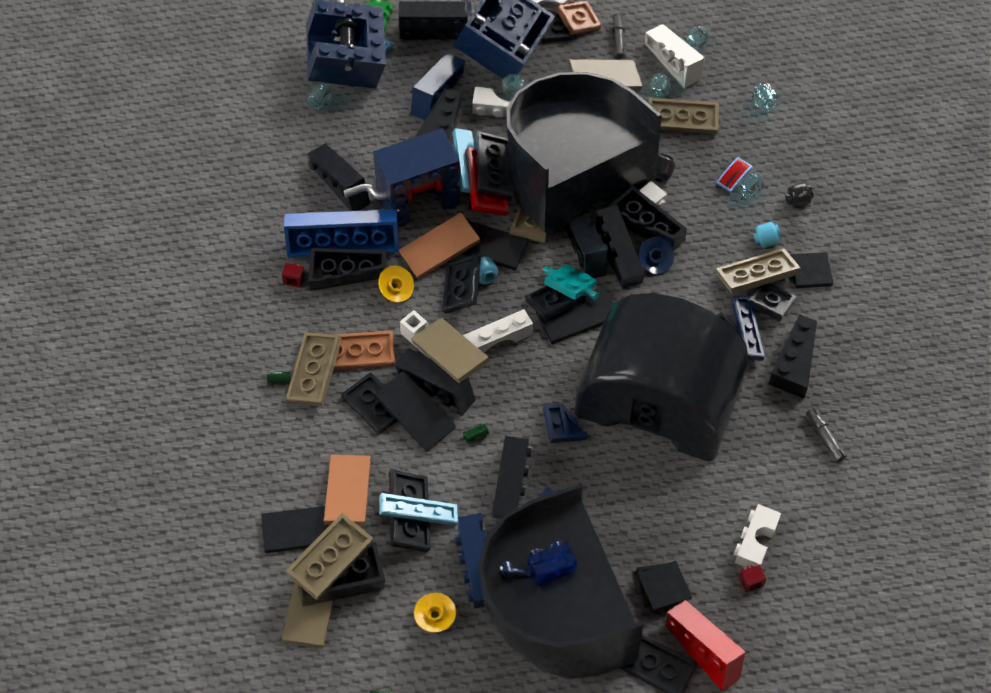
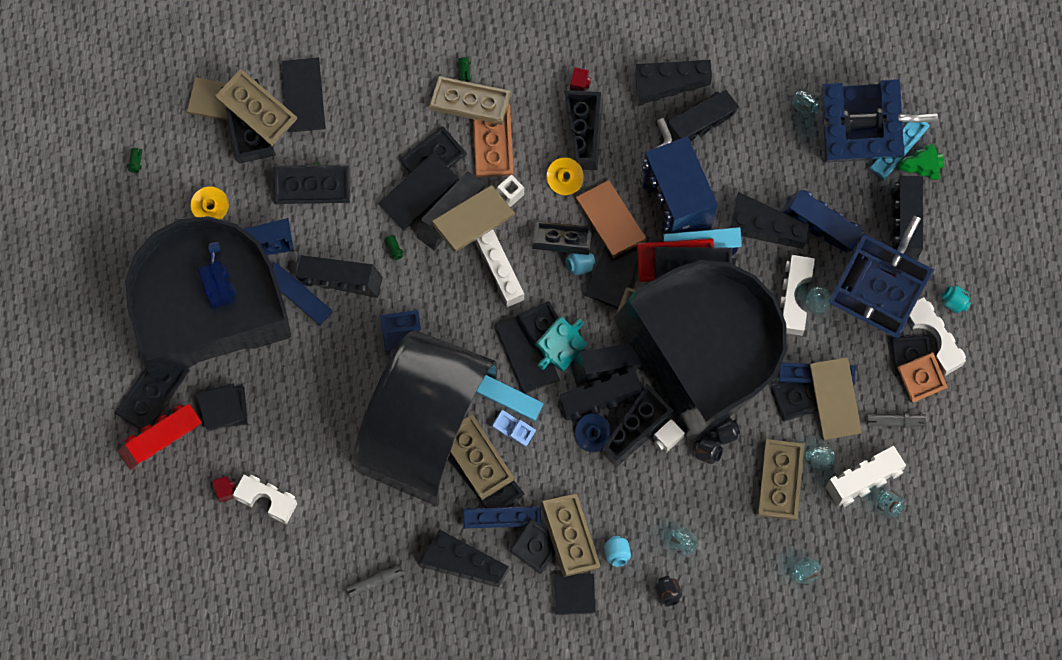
camera: 90 degrees right, 15 degrees up
(292, 192) = (670, 78): none -> black wedge
(341, 231) = (622, 122): blue brick -> none
(347, 488) = (338, 131): nougat tile -> none
(418, 509) = (309, 190): medium azure tile -> none
(733, 174) = (700, 526): slope -> none

